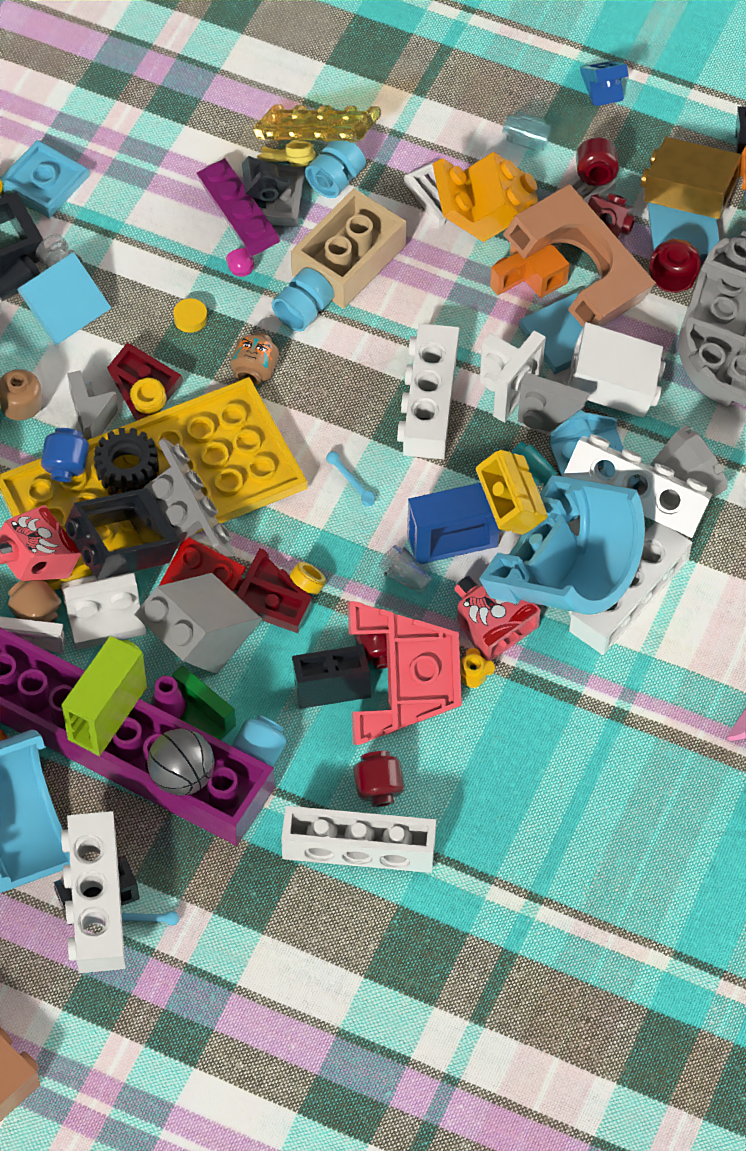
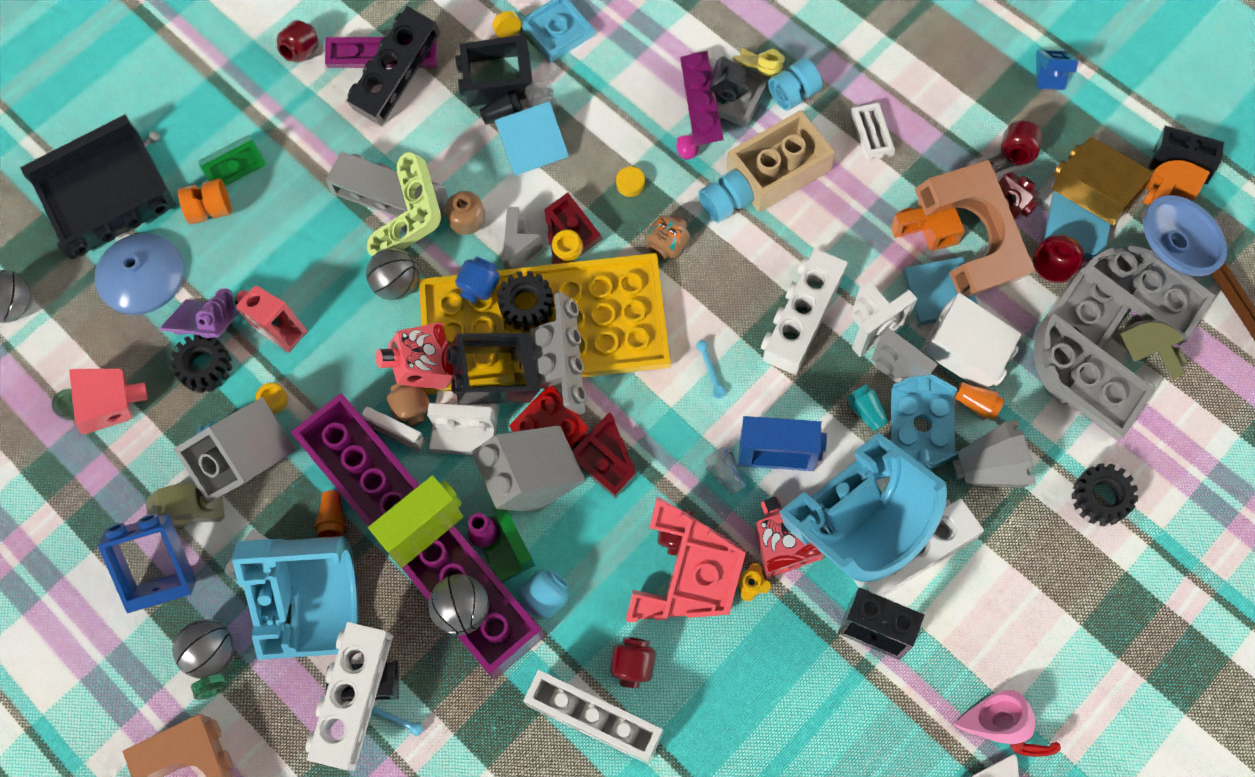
camera: 25 degrees right, 10 degrees up
(308, 578) = (640, 452): yellow tile -> none
(316, 124) = (792, 43): clear yellow hinge -> none
(331, 676) = (626, 550): black hinge -> none
(484, 195) = (912, 146): light orange bracket -> none
(511, 492) = (834, 441): yellow brick -> none
(527, 130) = (970, 95): clear light blue brick -> none
(635, 673) = (891, 622): none -> black window
(644, 425) = (979, 400): none -> orange cone
(692, 493) = (981, 505): white brick -> none

